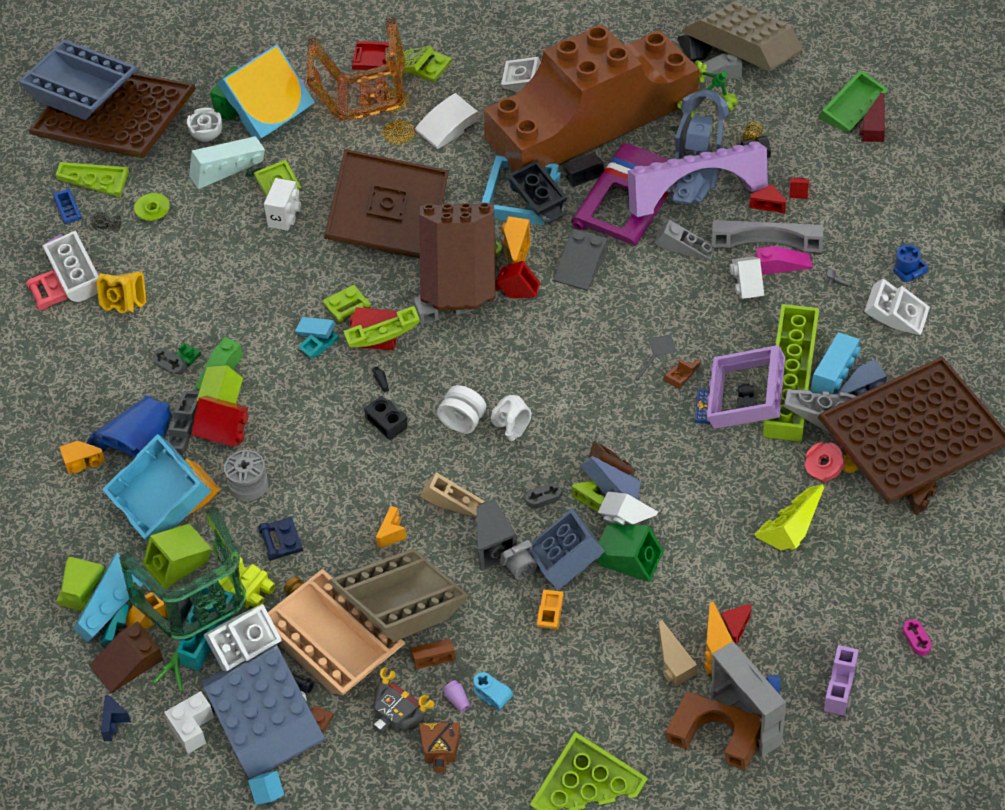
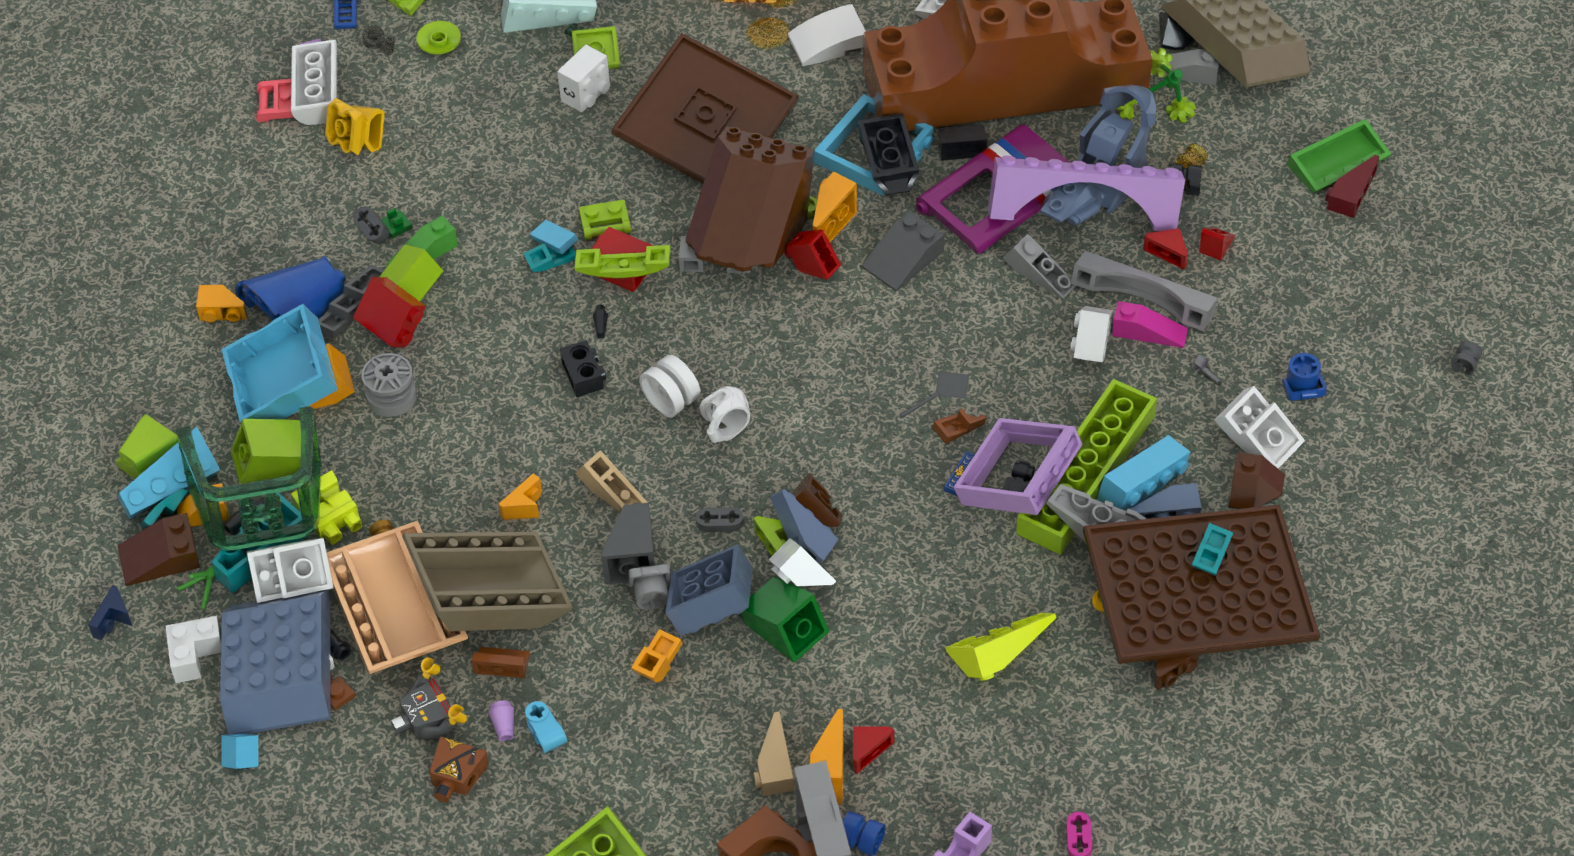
camera: 20 degrees right, 0 degrees up
(286, 535) = (403, 474): dark blue plate -> none
(832, 468) = (1079, 598): coral plate -> none
(911, 347) = (1254, 482): none -> reddish brown slope
(915, 402) = (1212, 549): none -> teal slope

